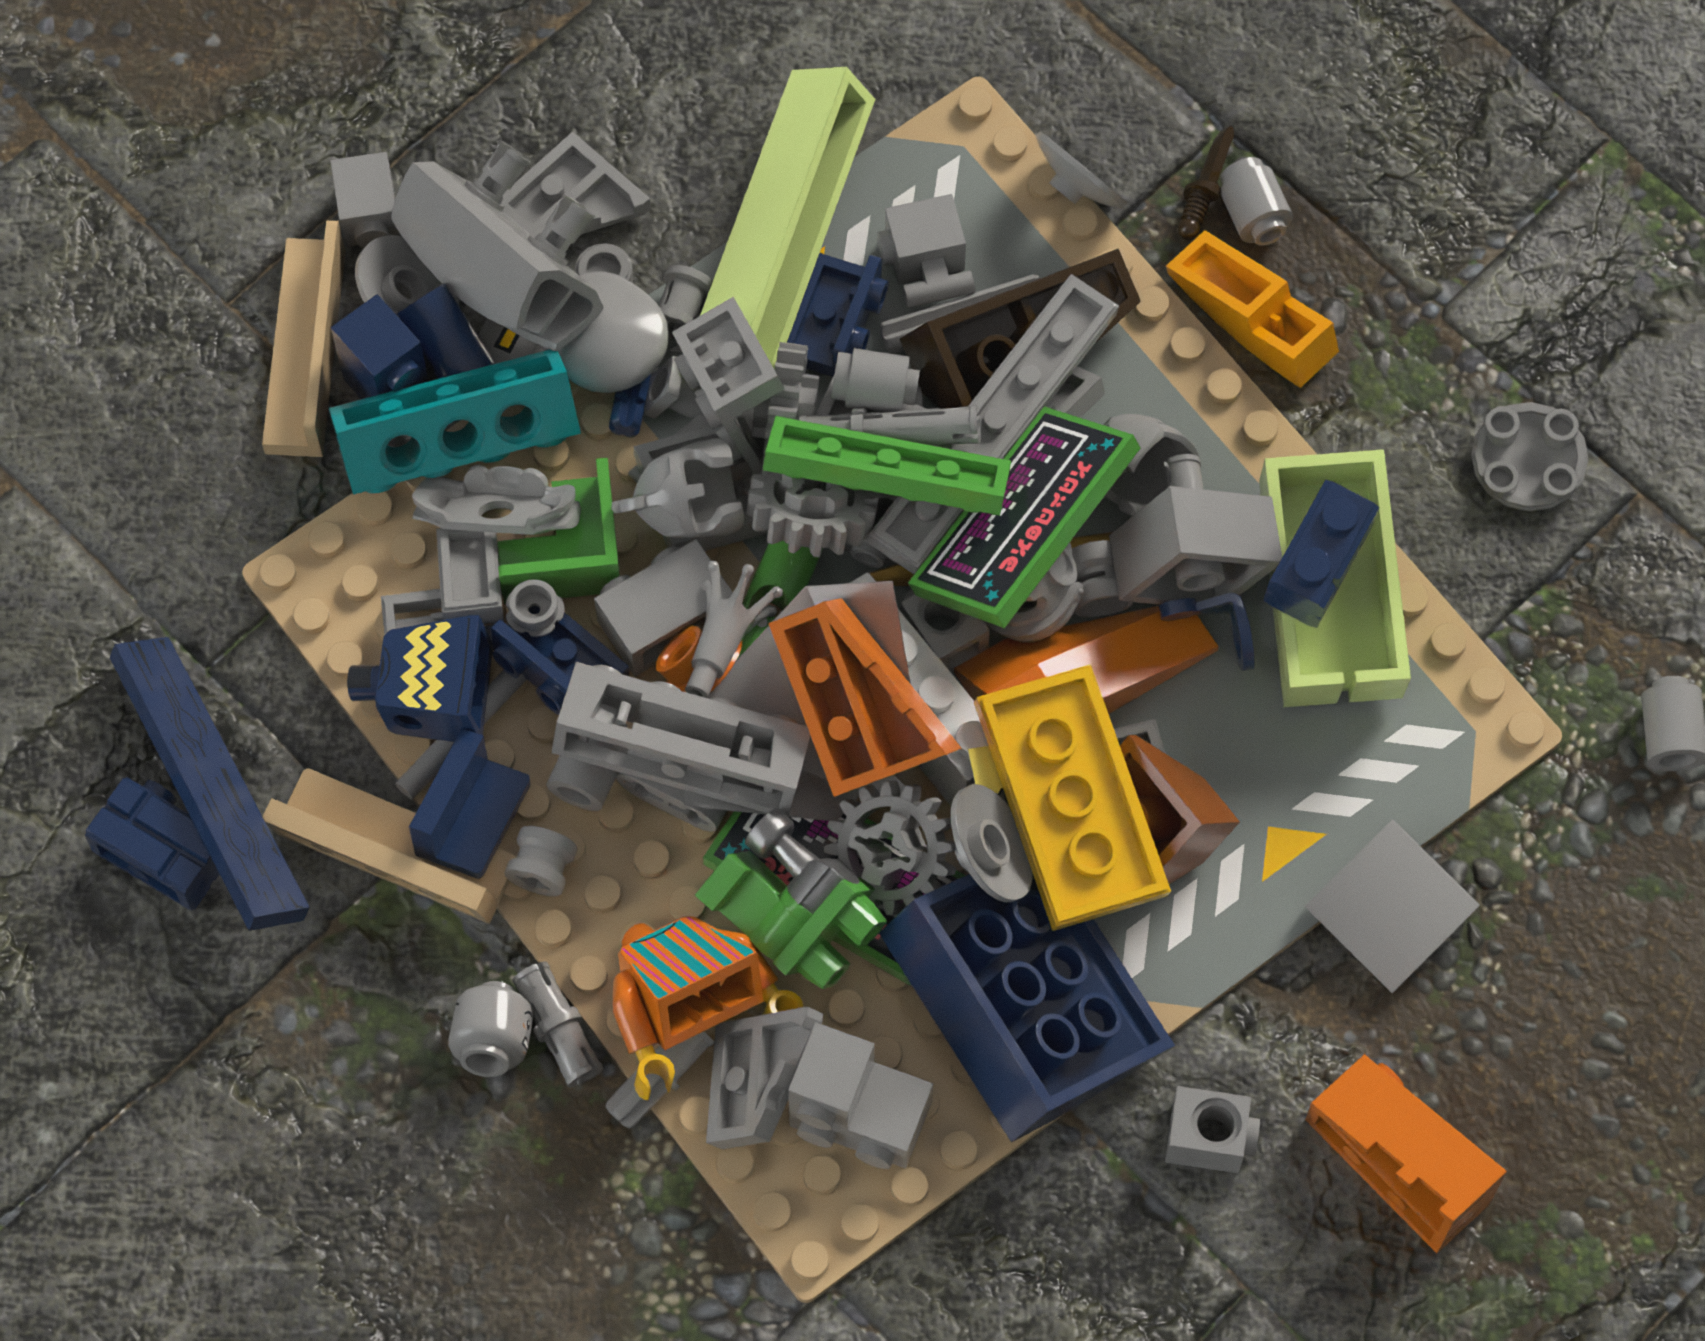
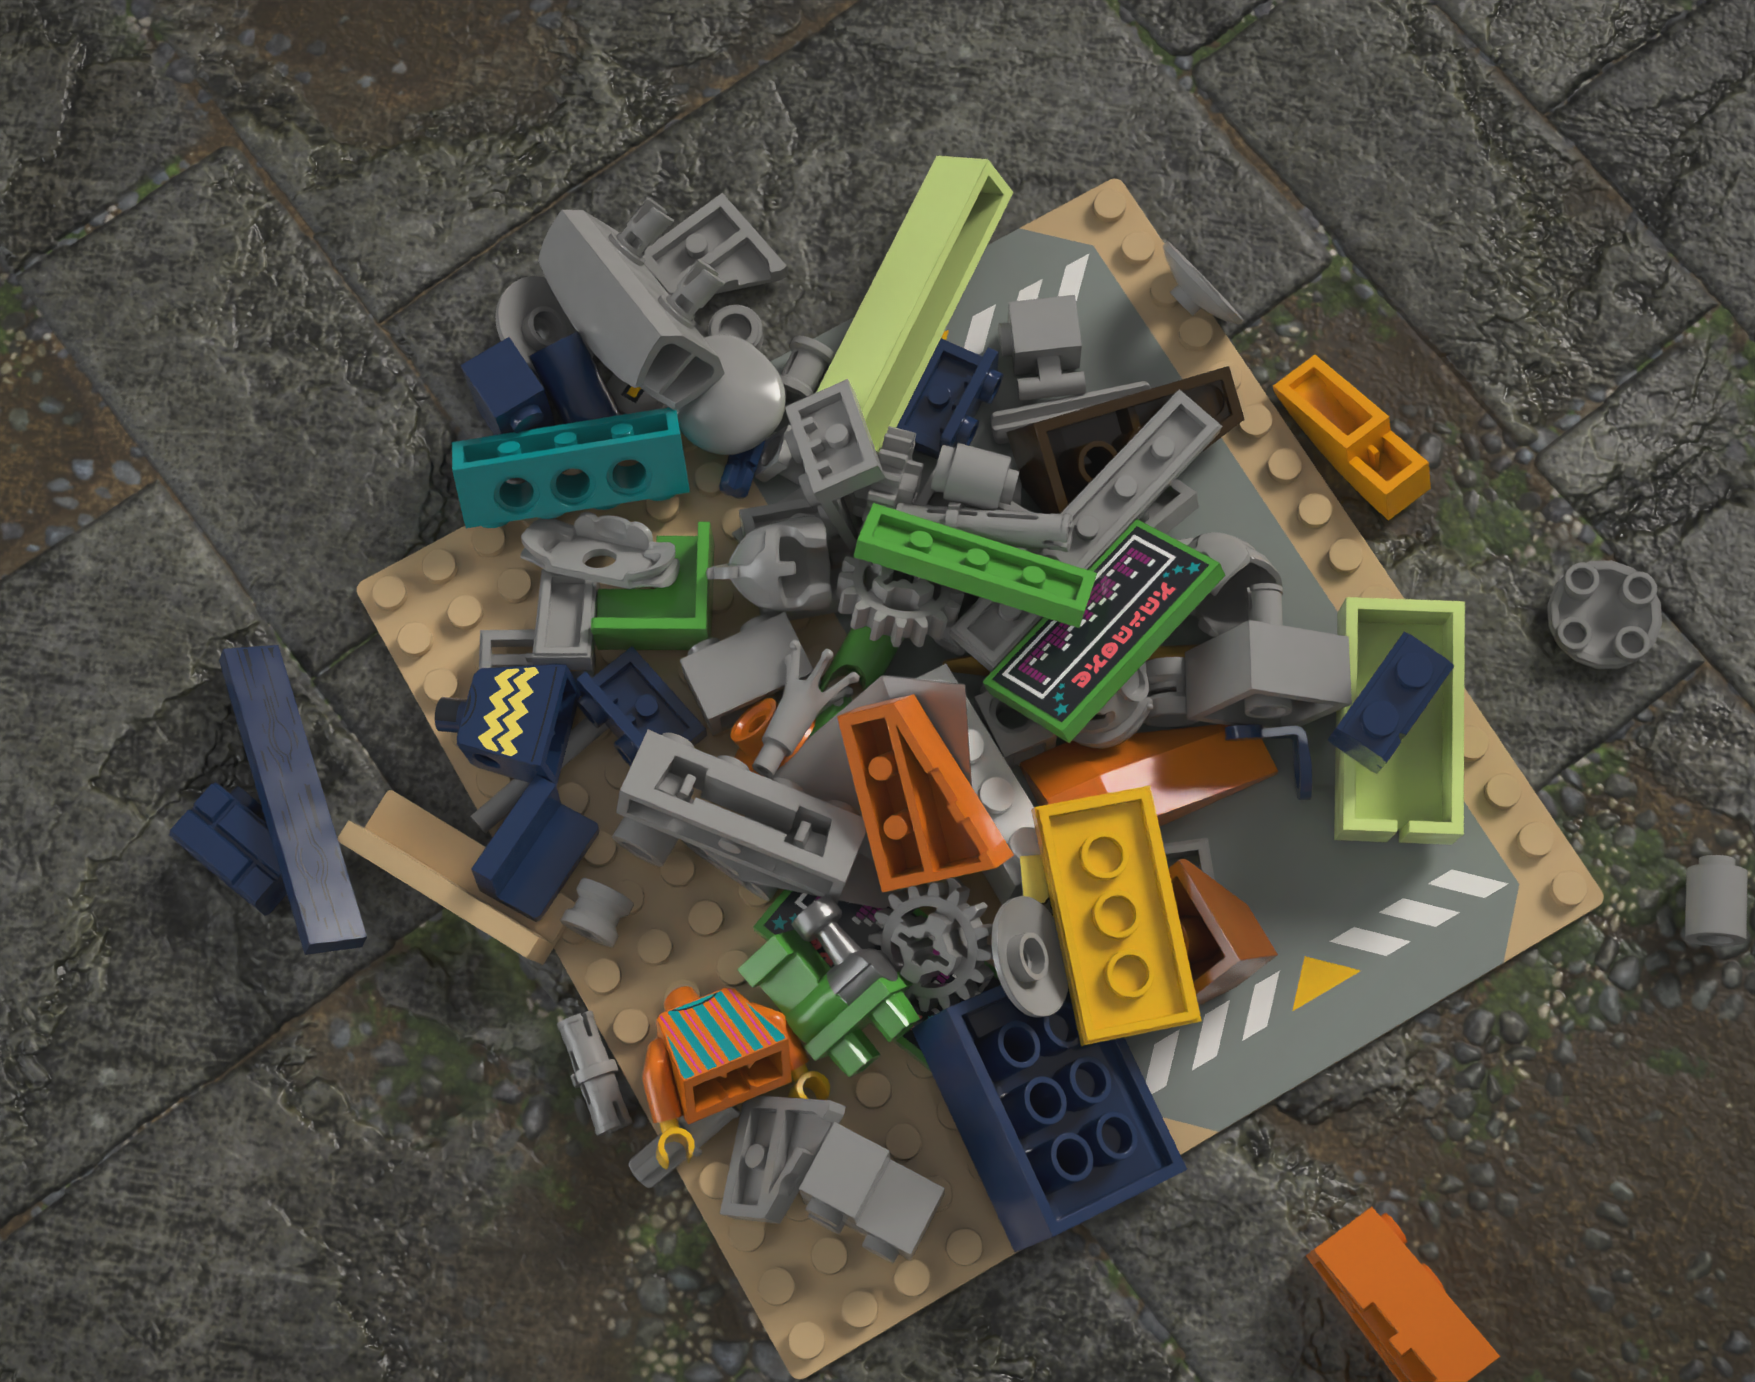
camera: 10 degrees right, 5 degrees up
(304, 345) = (438, 385): tan panel -> none
(364, 197) = (516, 235): light grey brick -> none
(490, 1029) = (529, 1071): light grey head -> none
(531, 594) = (617, 649): light grey plate -> none
(1190, 1148) = (1184, 1264): light grey brick -> none
(1206, 189) = (1320, 314): dark brown piece -> none
(1255, 201) = (1367, 331): light grey brick -> none
(1392, 905) = (1417, 1054): light grey slope -> none

